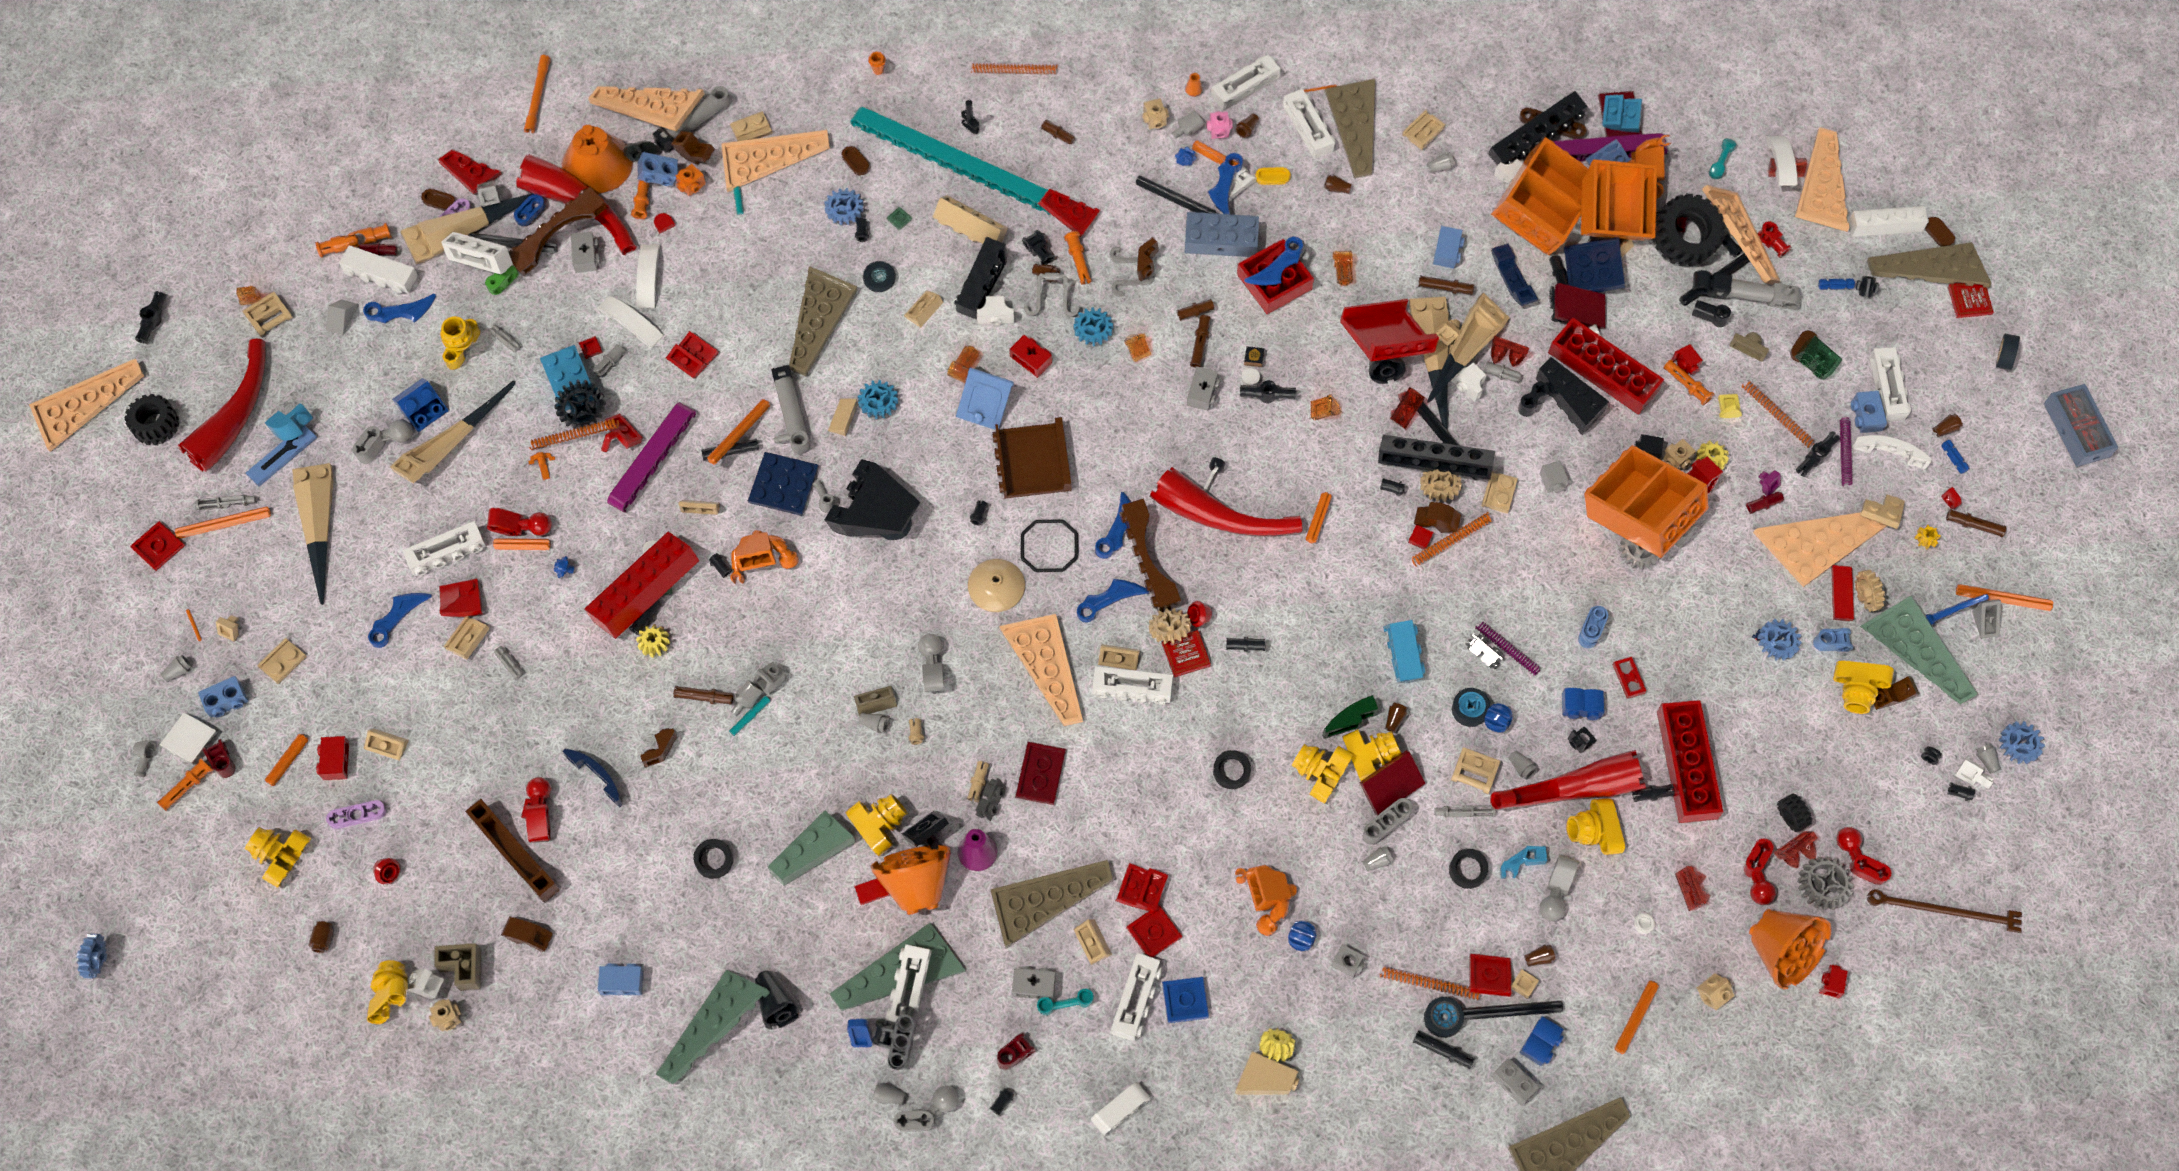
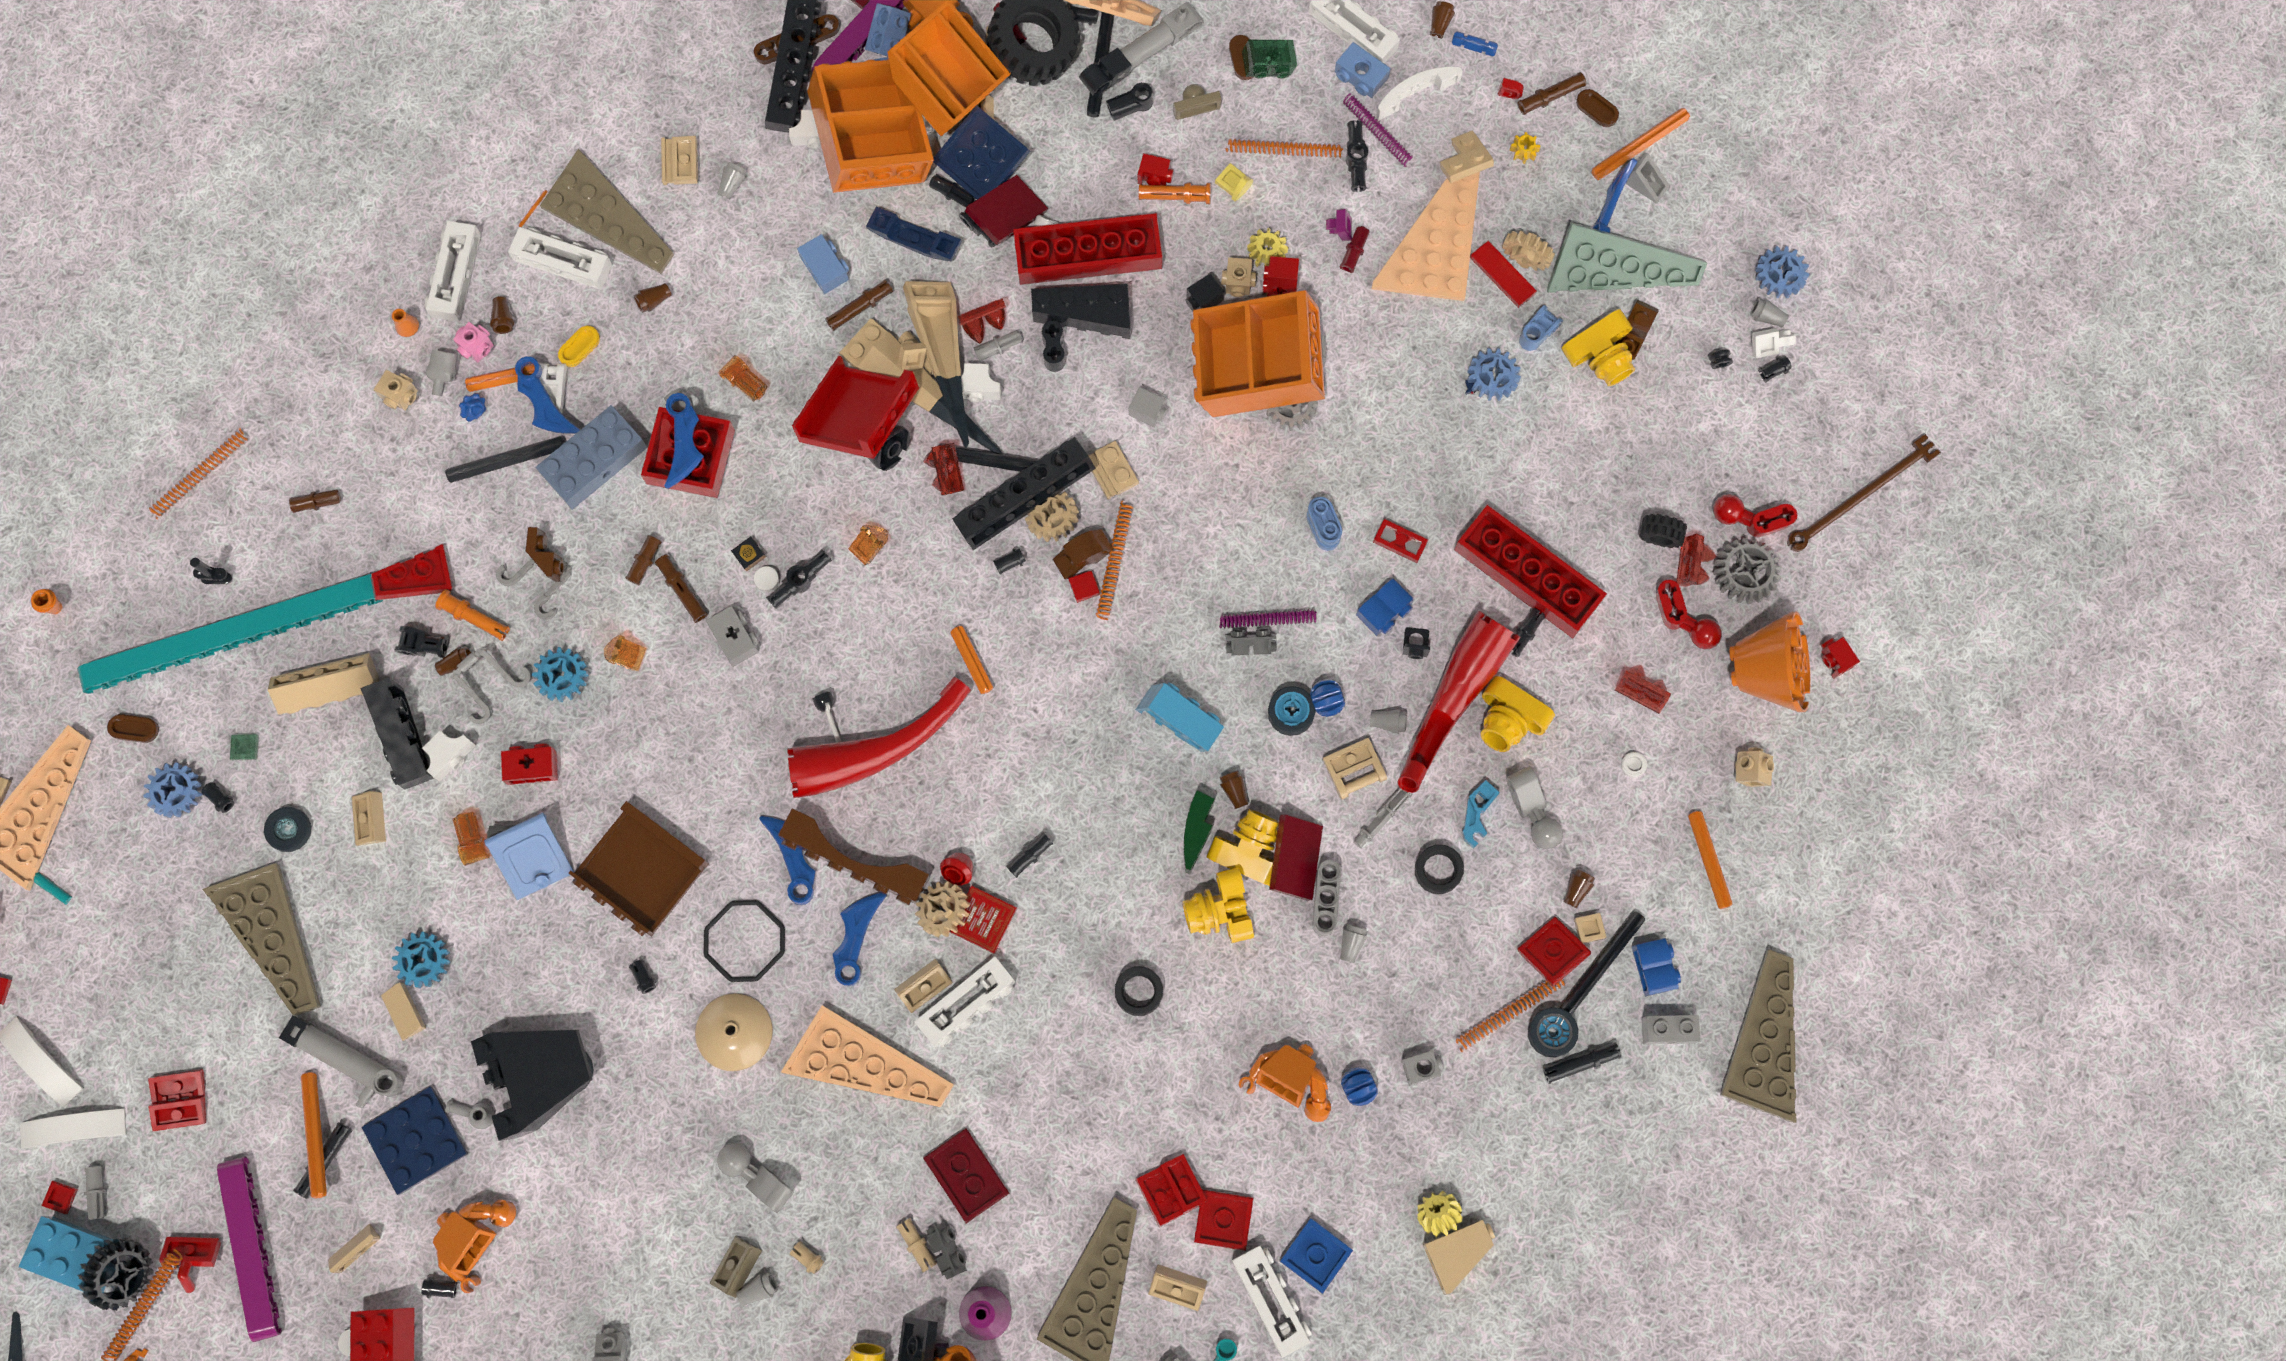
camera: 45 degrees left, 10 degrees up
(1997, 555) = (1597, 108): none -> reddish brown tile

